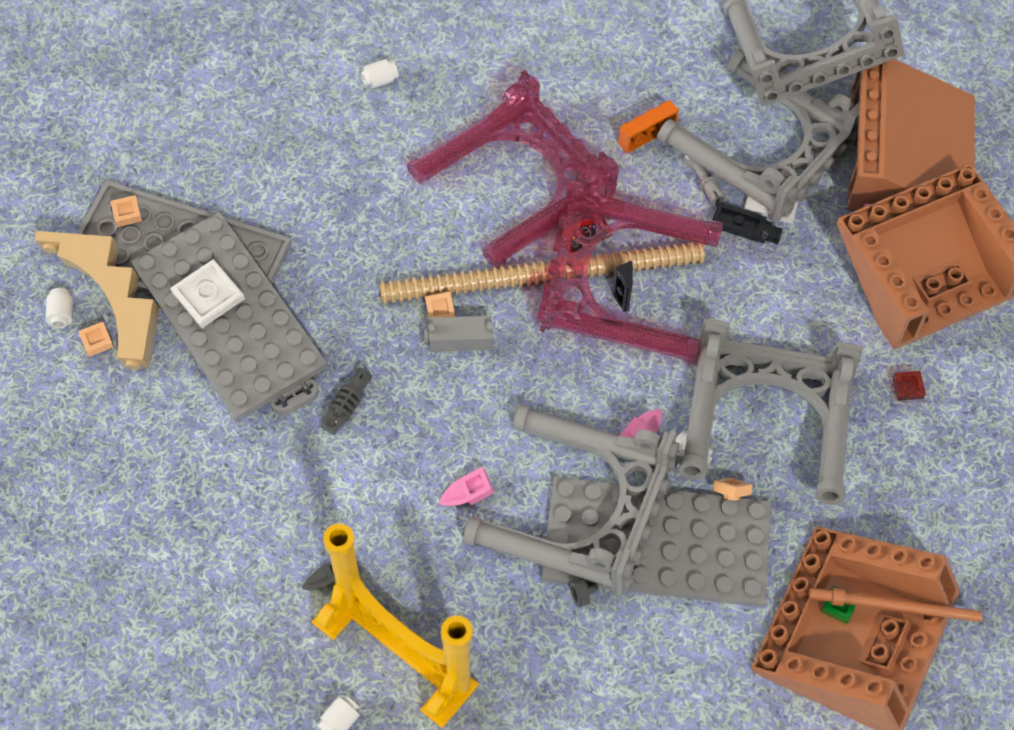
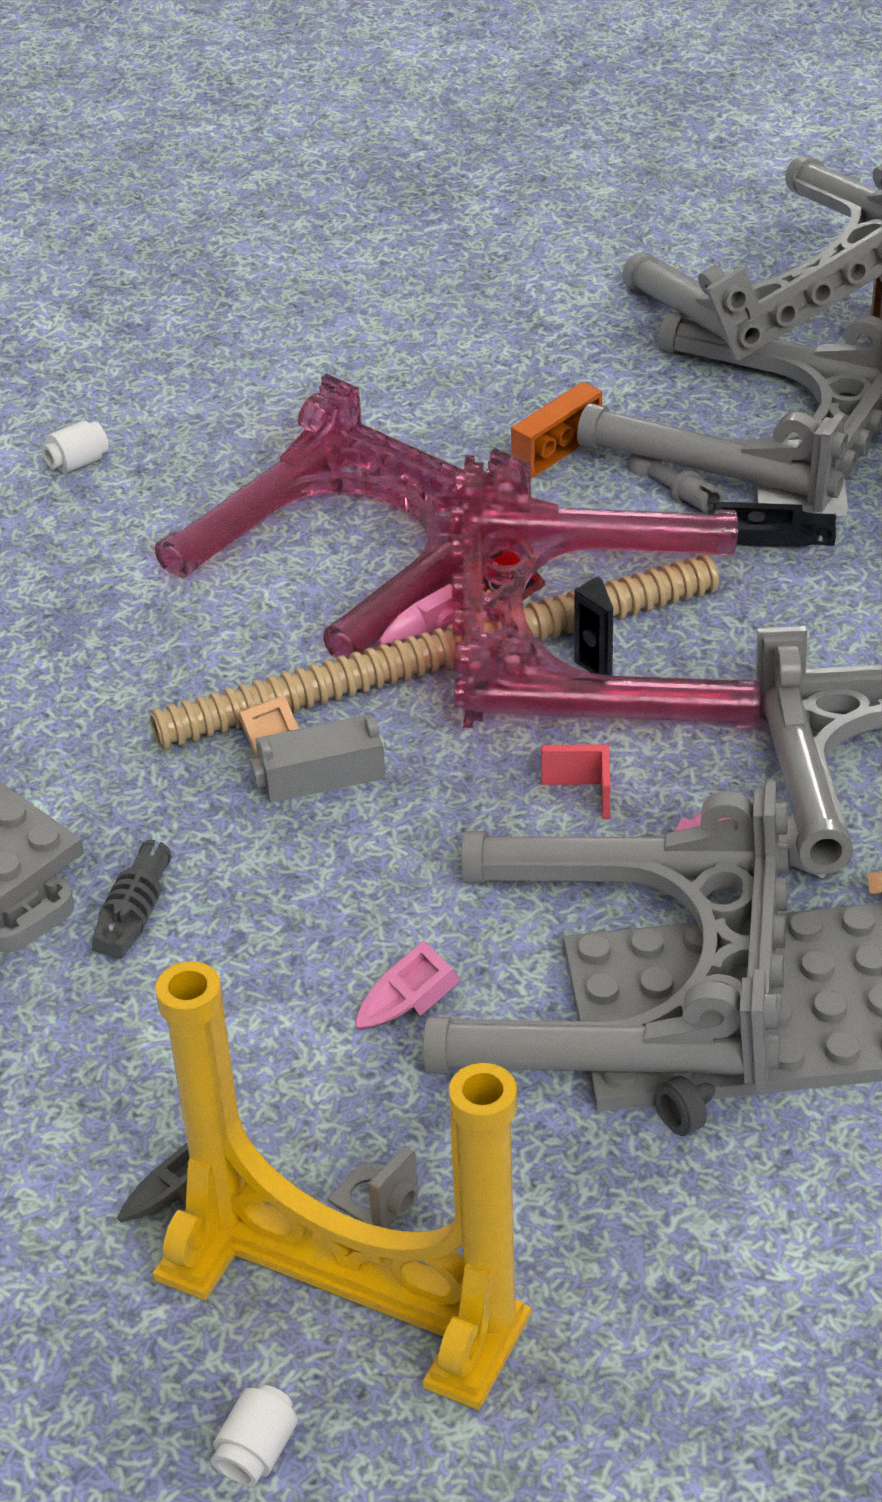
camera: 10 degrees left, 20 degrees down
(429, 610) = (390, 1190): none -> light grey bracket
(538, 251) = (423, 616): none -> bright pink plate
(592, 370) = (578, 766): none -> coral bracket

